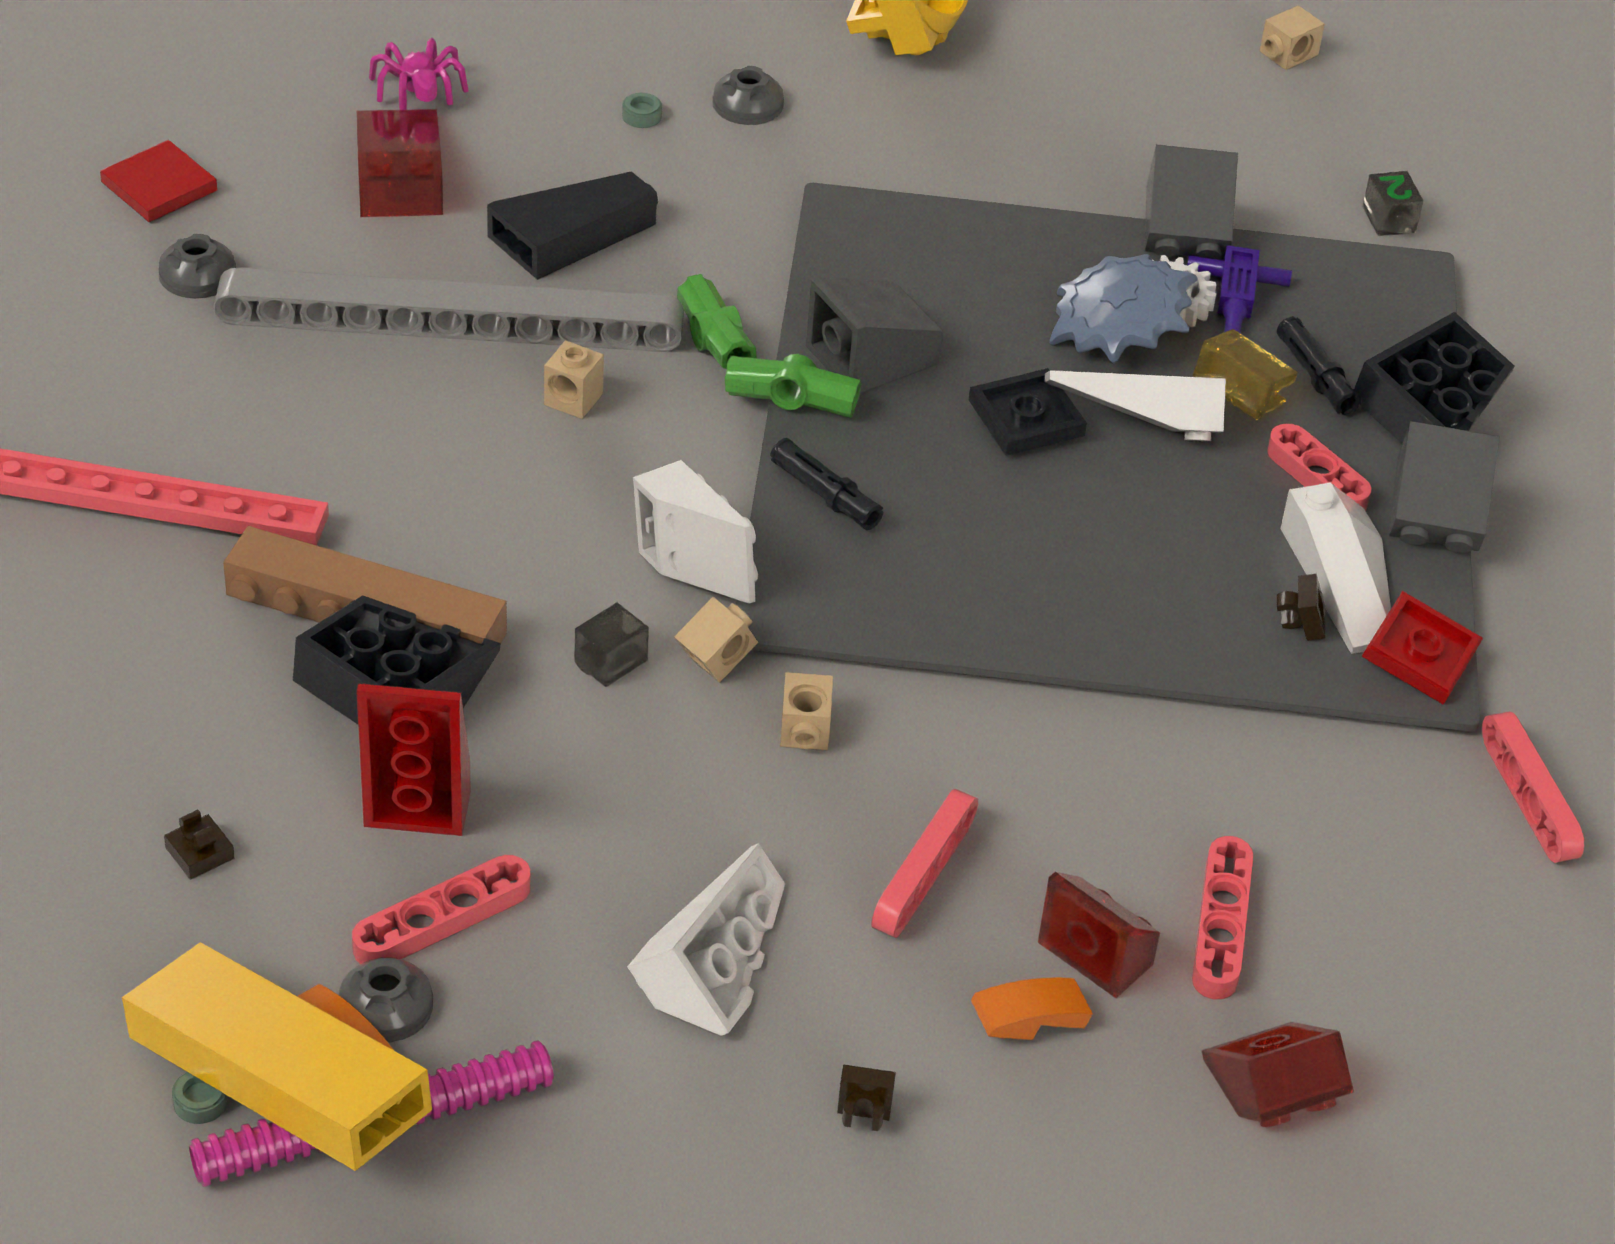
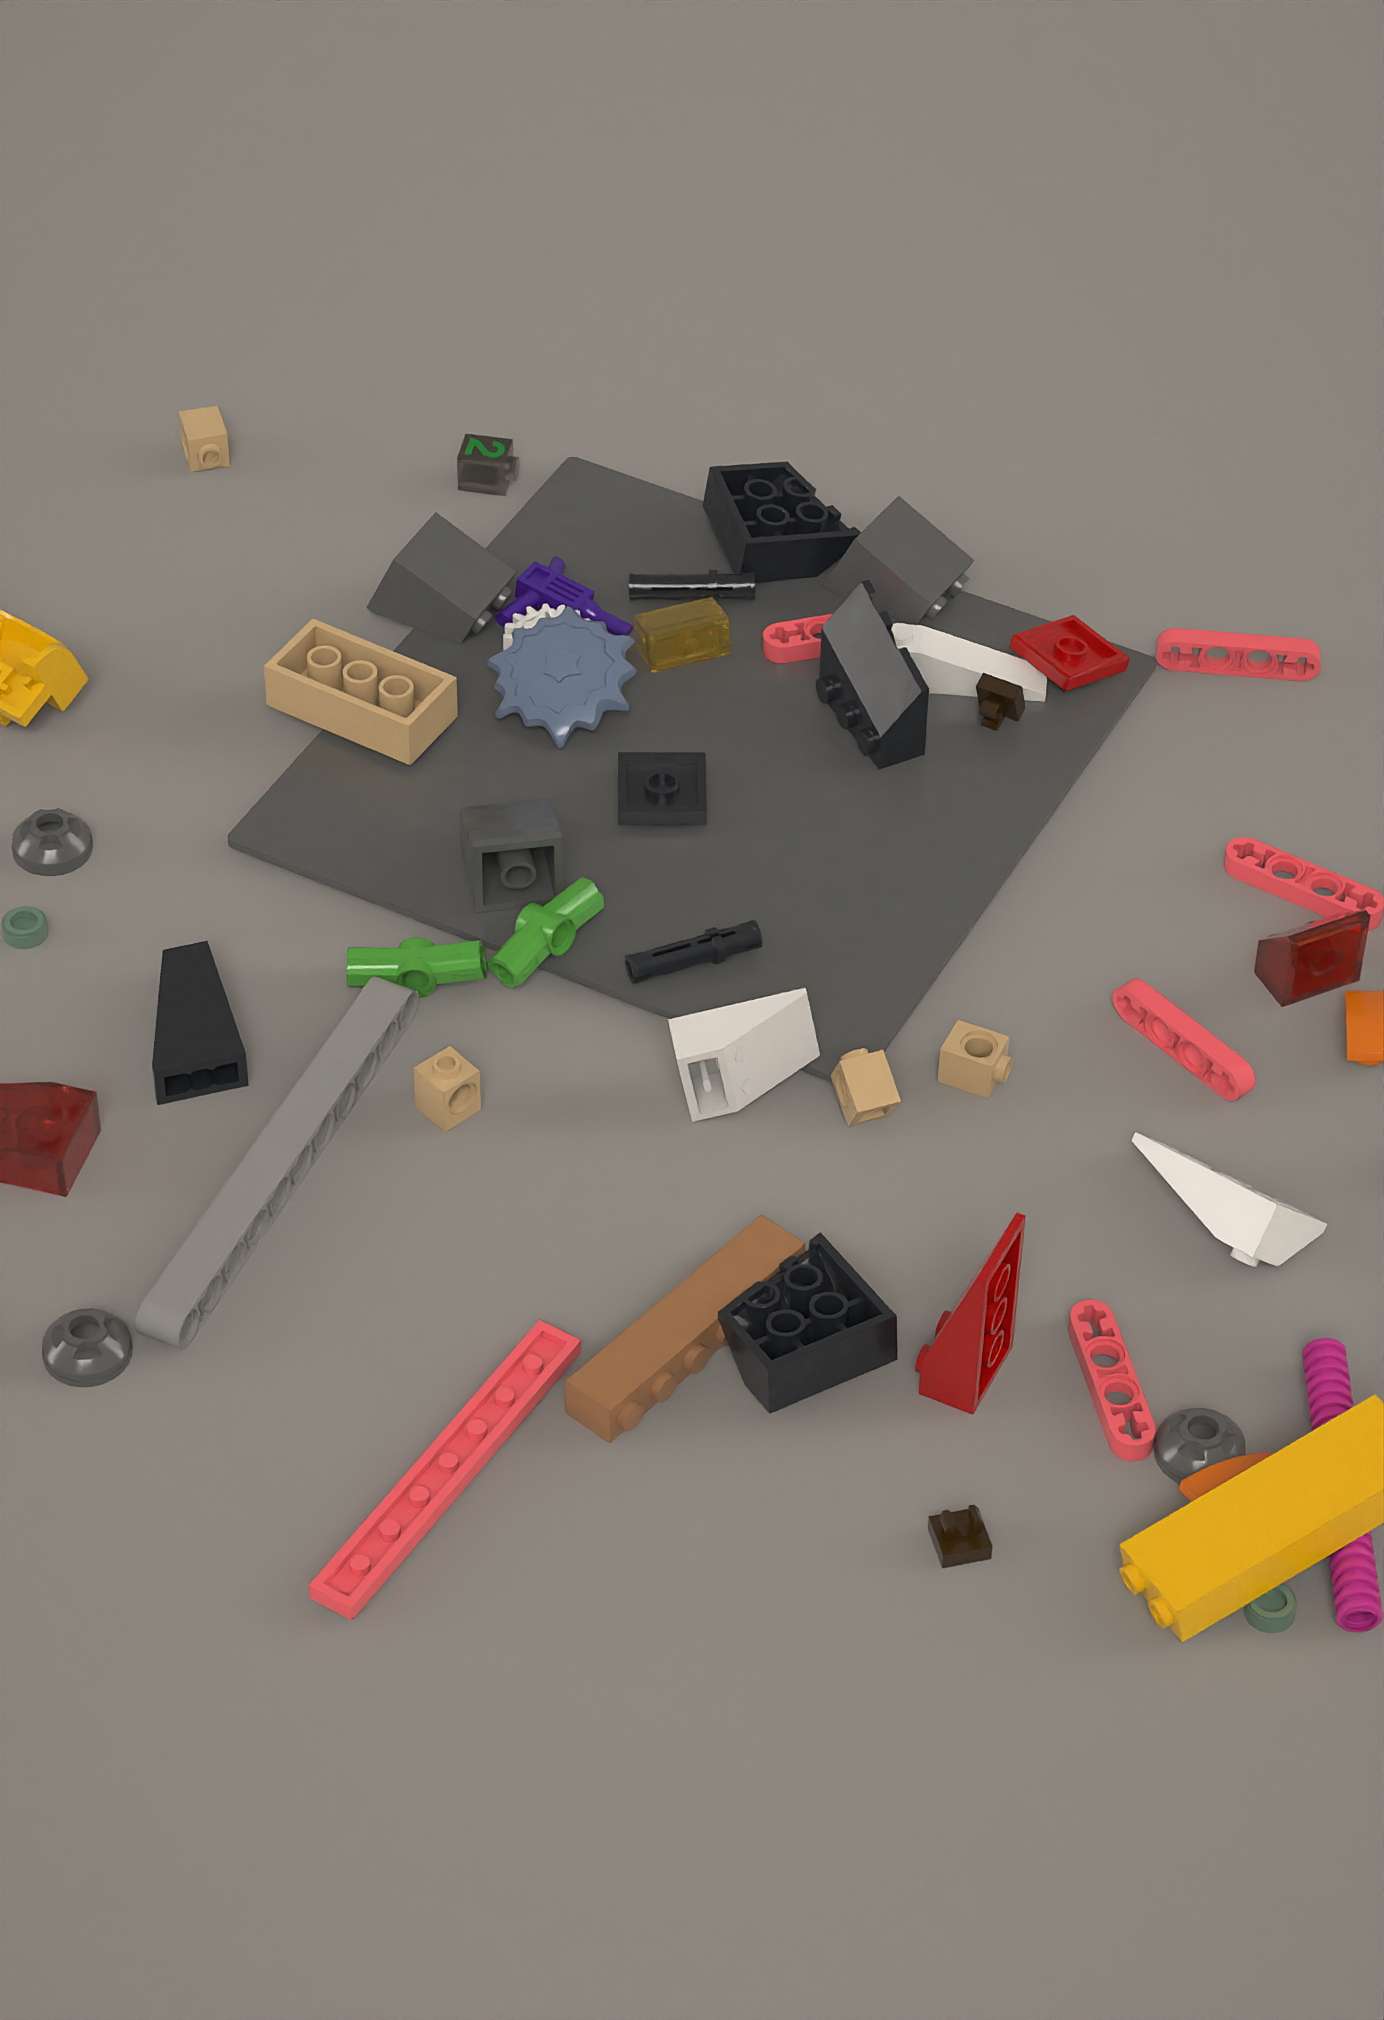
camera: 65 degrees left, 0 degrees up
(611, 644) = (830, 1166): clear smoke brick -> none
(1010, 194) = (361, 691): none -> tan brick
(1169, 402) = (698, 691): white wedge -> none
(1241, 501) = (872, 681): none -> wedge

